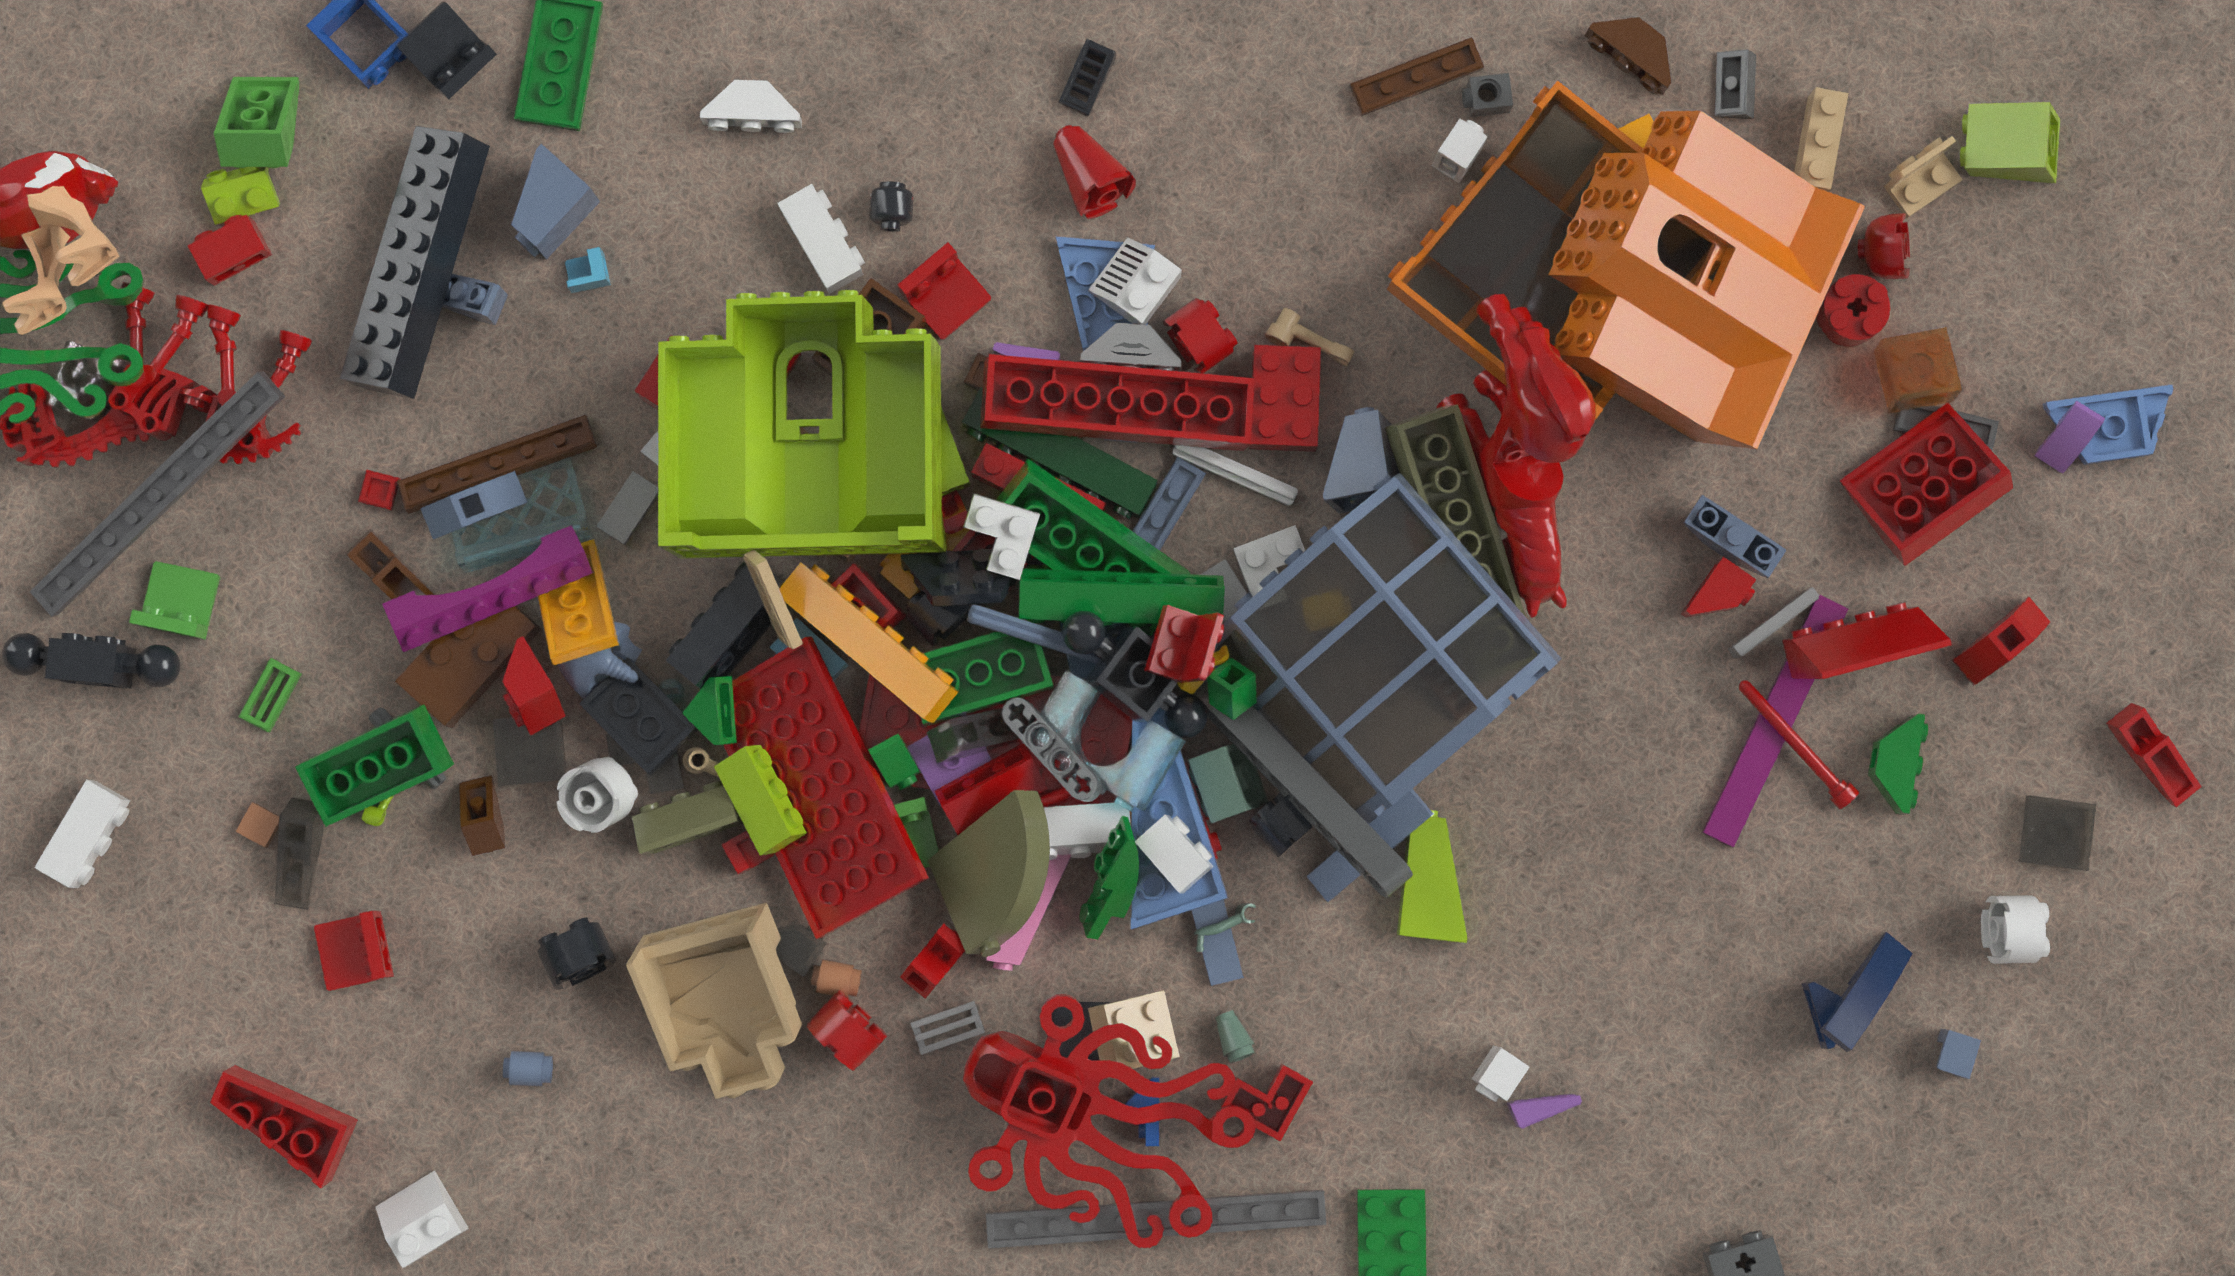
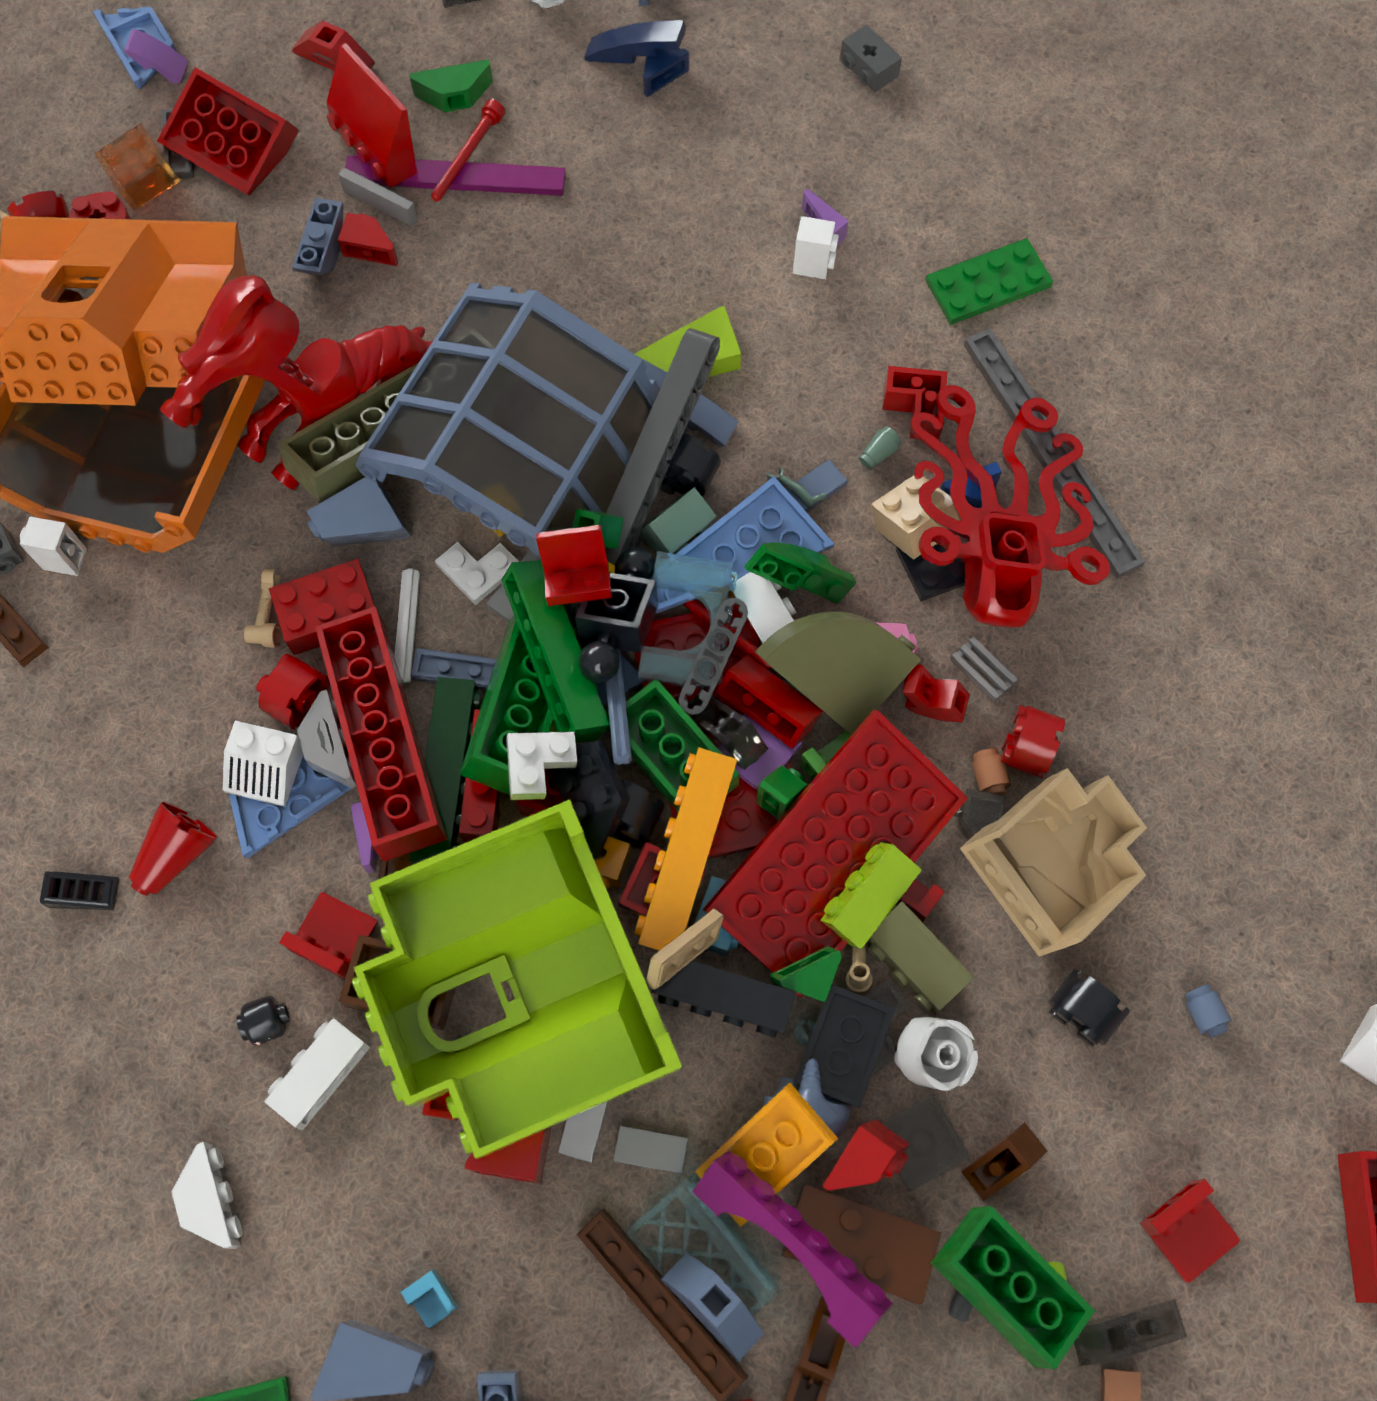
camera: 110 degrees left, 15 degrees down
(1175, 853) = (757, 523): white brick -> none

